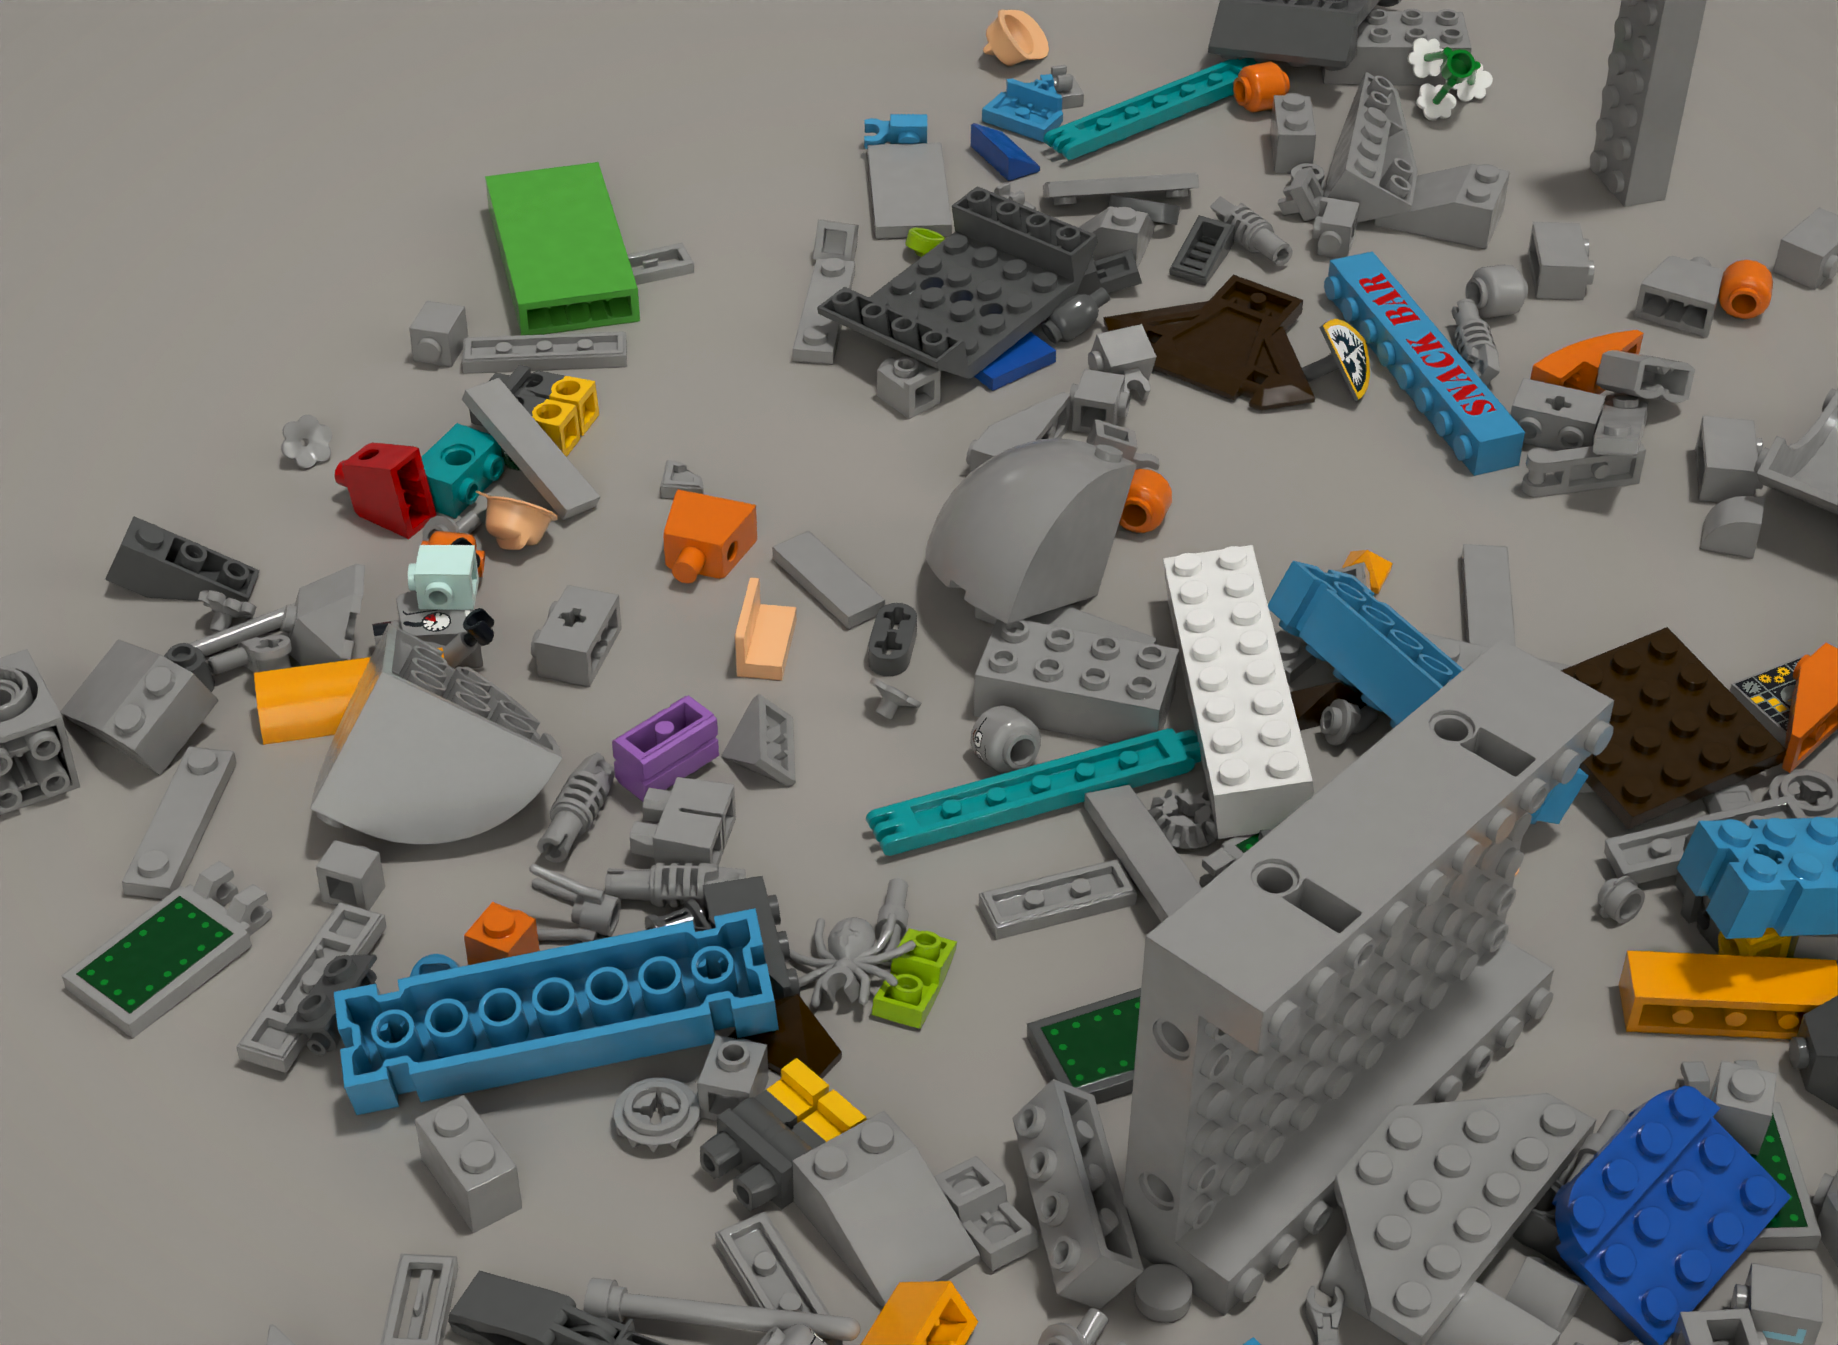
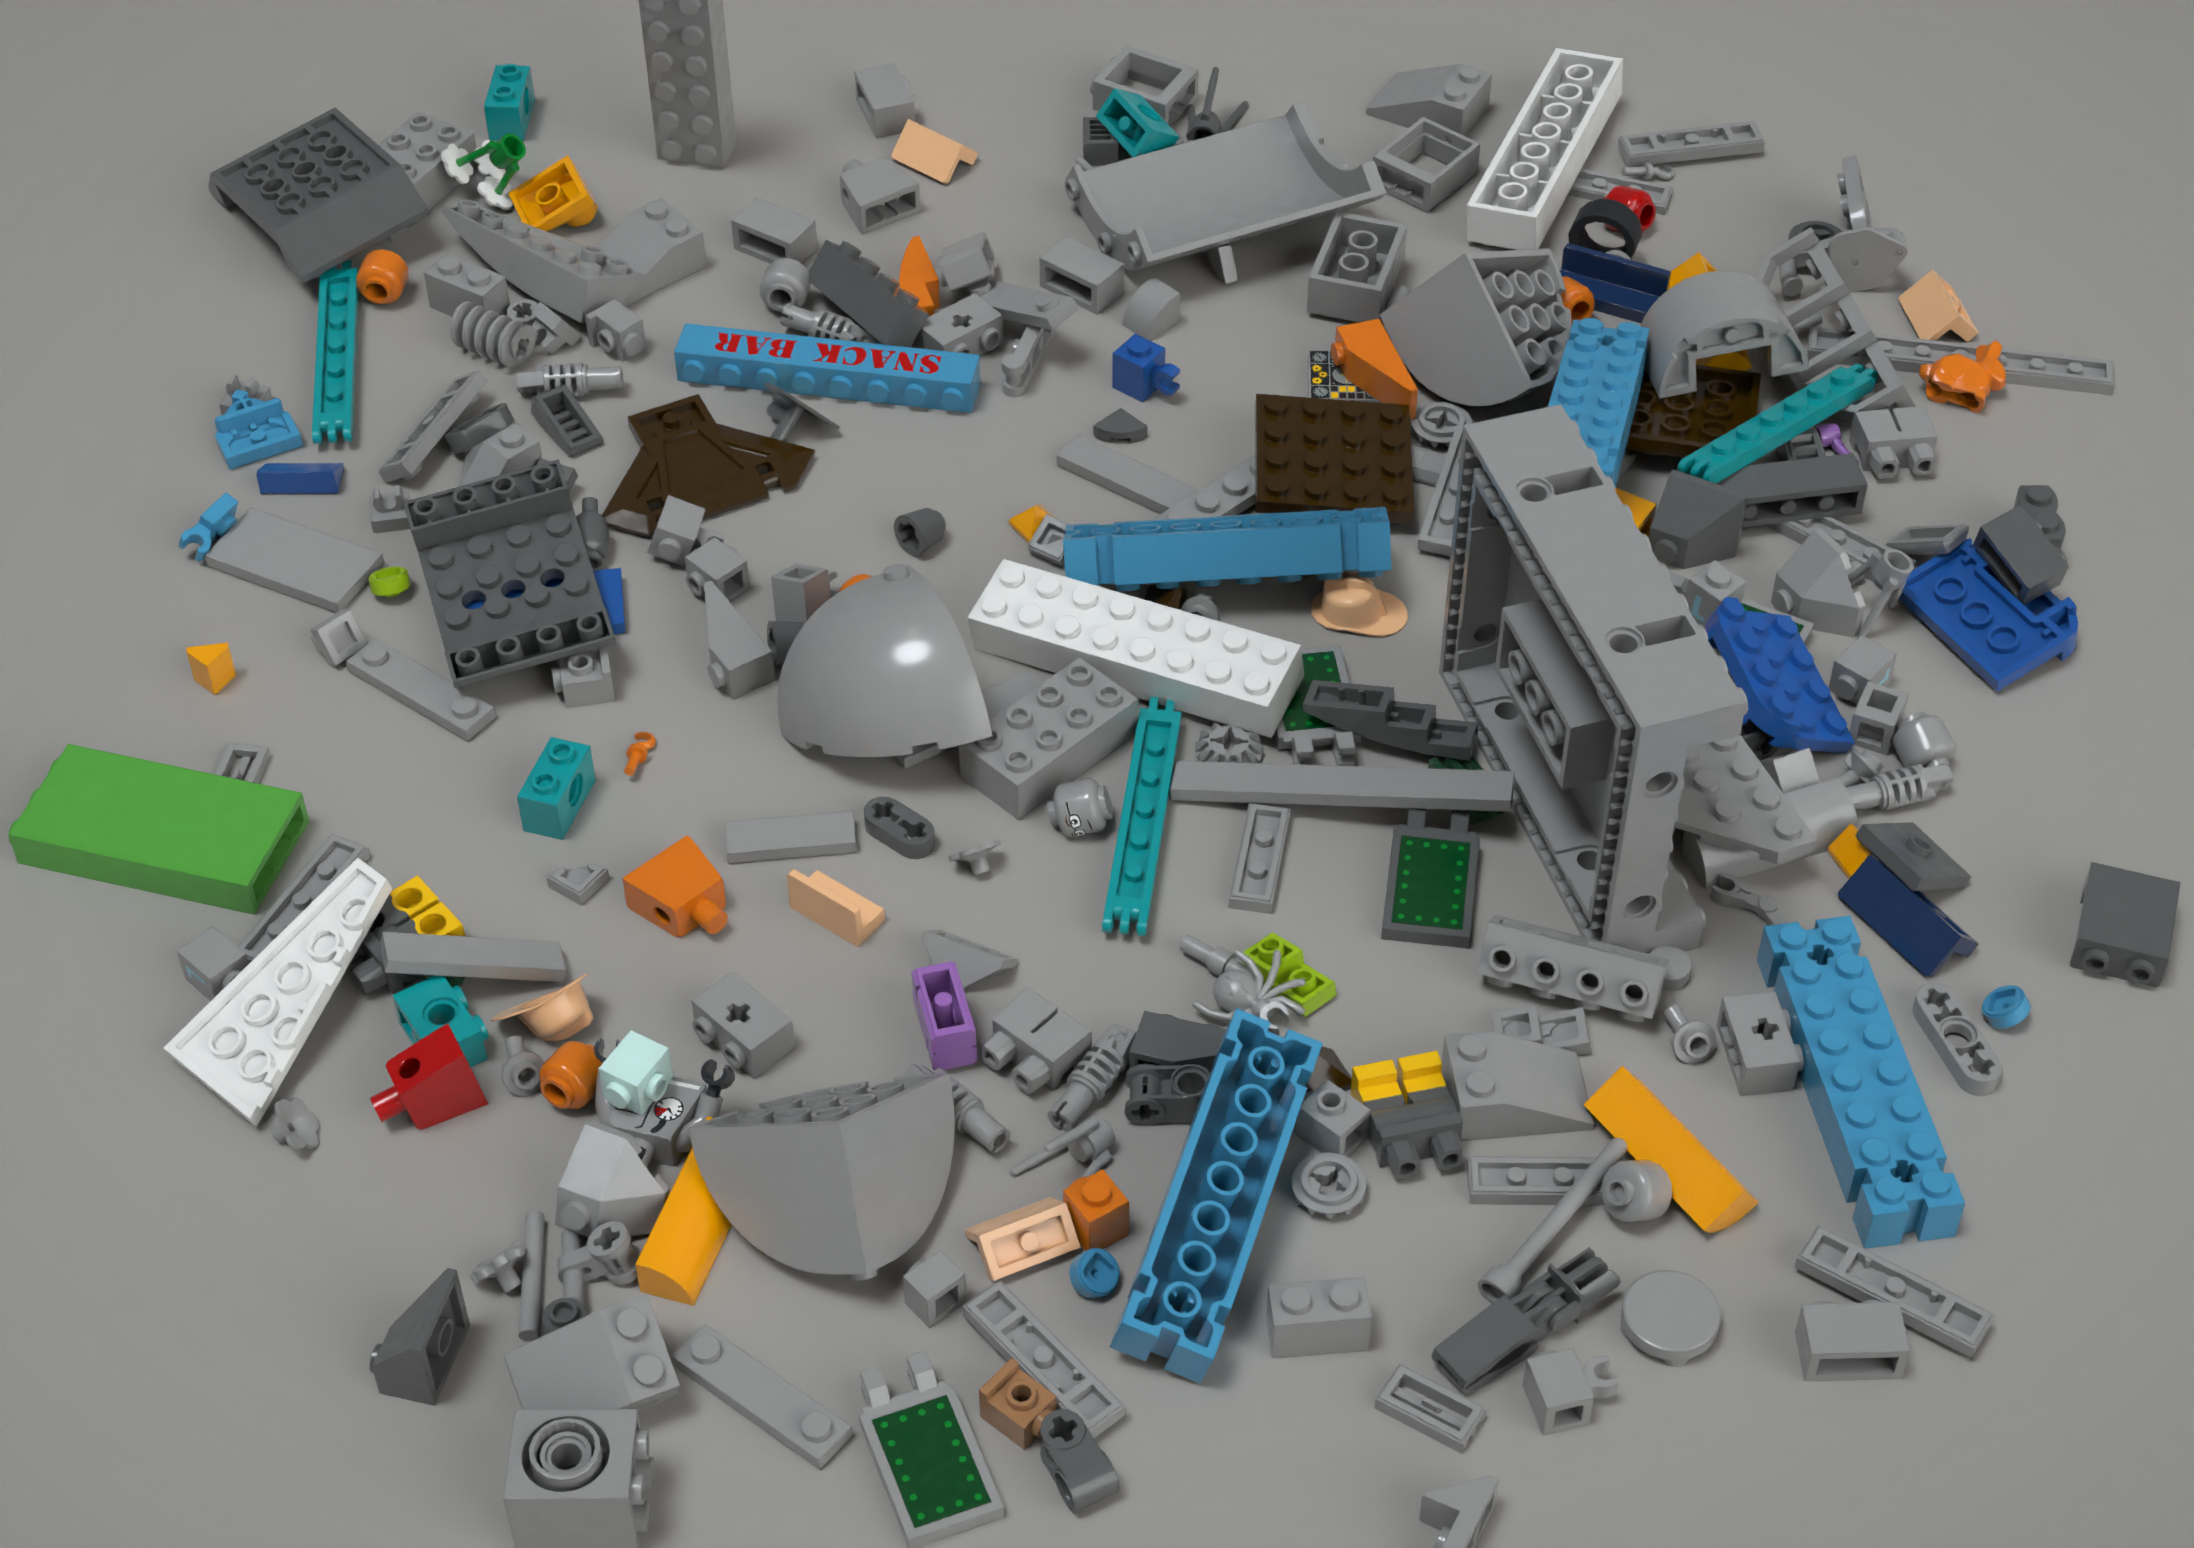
camera: 60 degrees left, 5 degrees up
(116, 597) = (423, 1343): none -> dark grey slope
(173, 567) = (392, 1286): dark grey slope -> none
(197, 1056) = (1075, 1460): none -> dark grey piece
(246, 983) = (1015, 1404): none -> medium nougat brick
(317, 1011) = (1083, 1344): dark grey hinge -> none
(403, 371) = (265, 1014): none -> white wing
(439, 909) = (1024, 1237): none -> light nougat panel
(750, 198) = (211, 665): none -> light orange slope
(763, 419) = (556, 788): none -> teal brick
(852, 452) = (638, 751): none -> orange hand
(1015, 38) = (144, 391): light nougat piece -> none
(1255, 166) = (492, 335): none -> light grey piece
(1273, 498) = (919, 530): none -> dark grey hat
(1460, 131) = (555, 198): none -> light orange slope
(1525, 335) = (866, 294): none -> dark grey brick
(1546, 58) = (509, 101): none -> teal brick
(1550, 571) = (1120, 426): none -> dark grey tile
(1636, 547) = (1142, 370): none -> blue brick
(1745, 289) = (907, 155): orange head -> none
(1794, 301) = (930, 152): none -> light nougat panel

